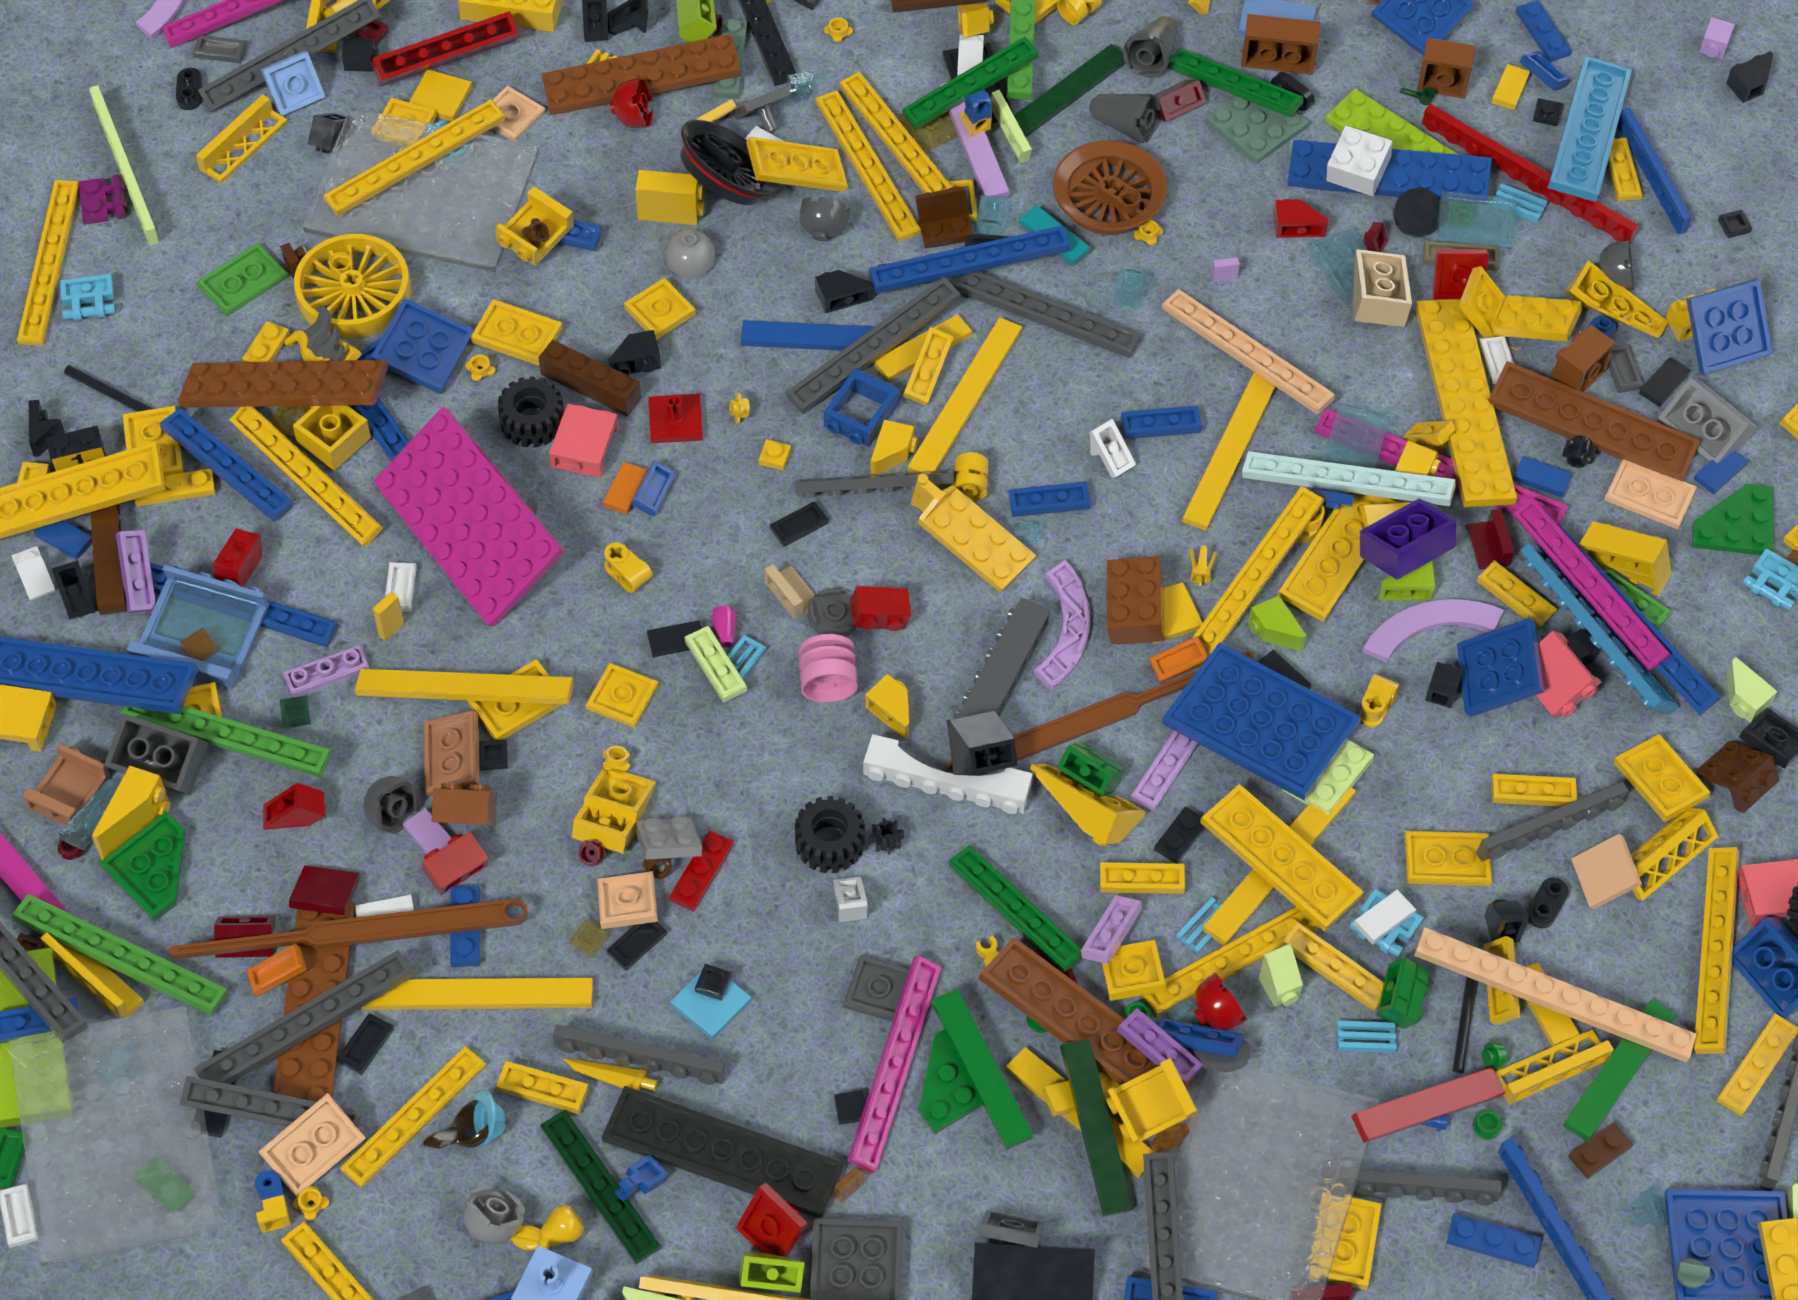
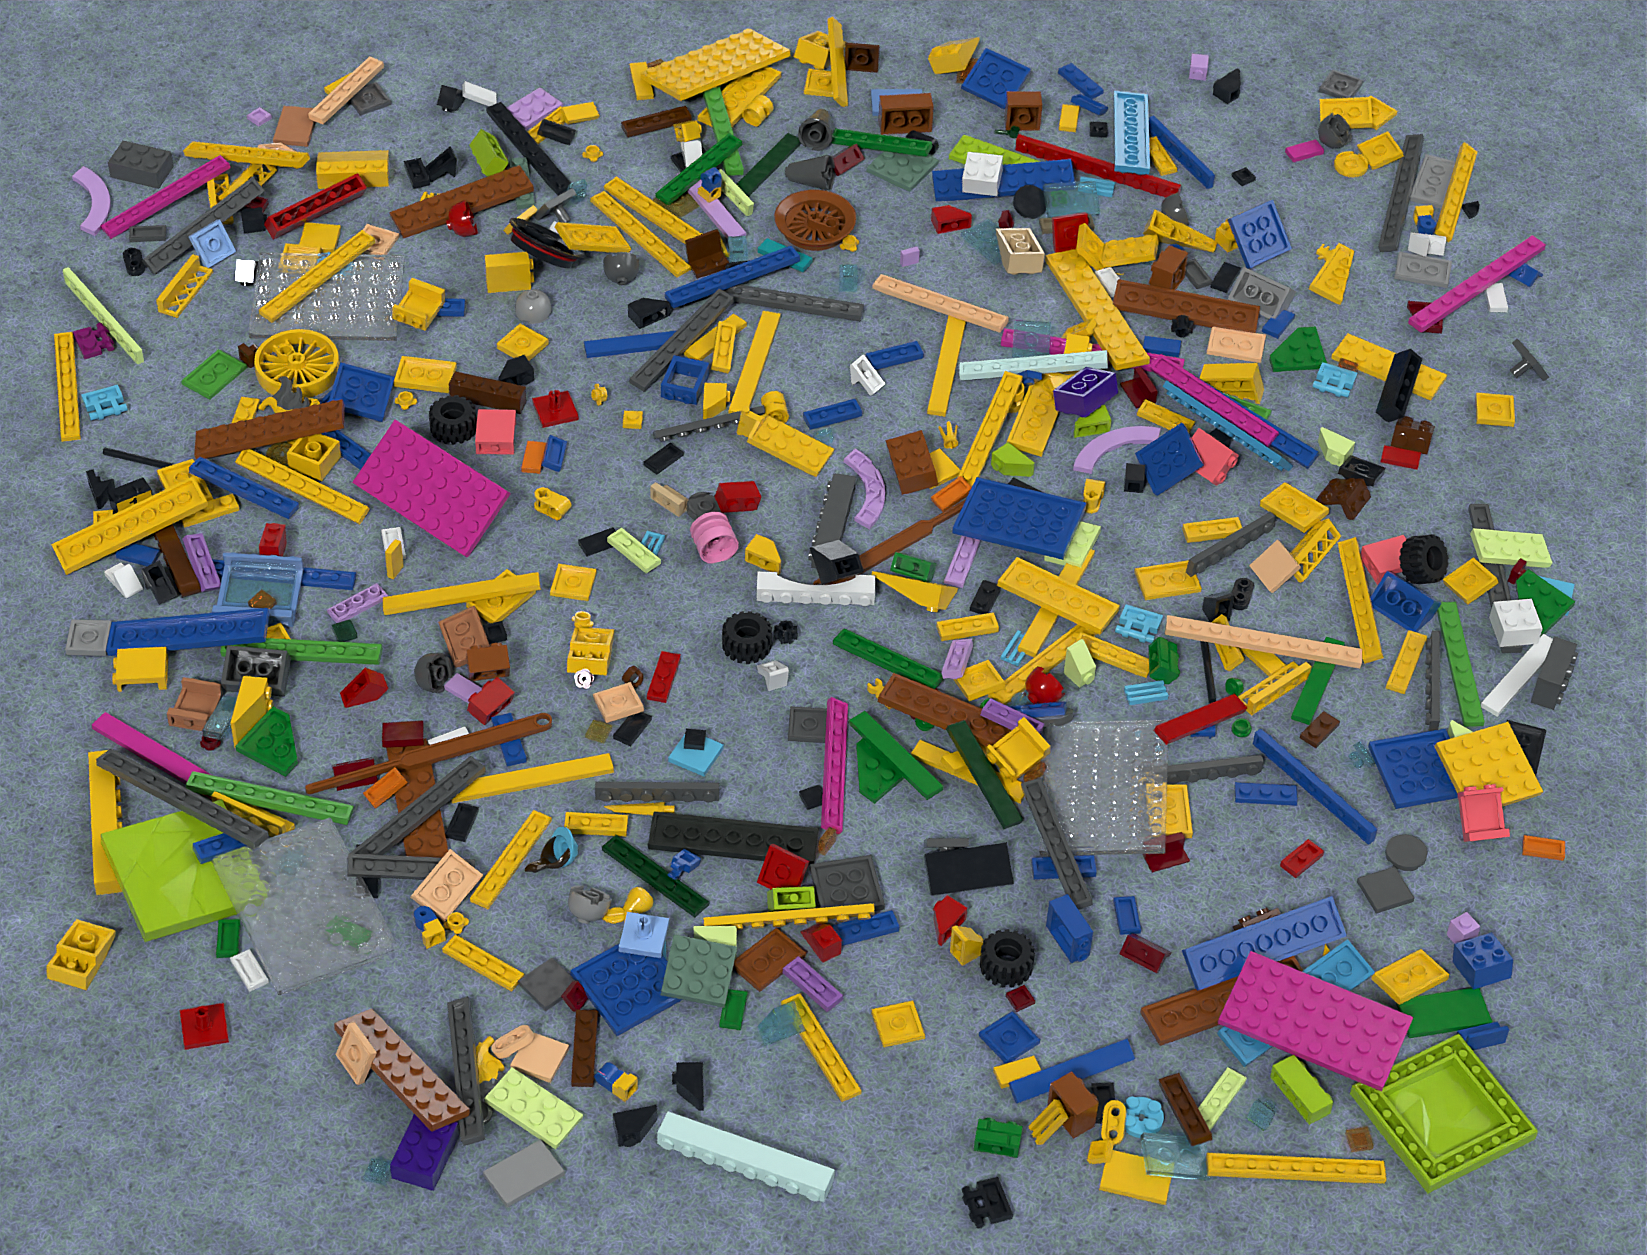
camera: 15 degrees left, 10 degrees down
(541, 229) = (421, 306): reddish brown plate -> none
(668, 838) = (636, 658): light grey plate -> none
(724, 624) = (631, 524): dark pink cone -> none
(1384, 917) = (1137, 618): white tile -> none
(1692, 1273) = (1401, 784): sand green plate -> none

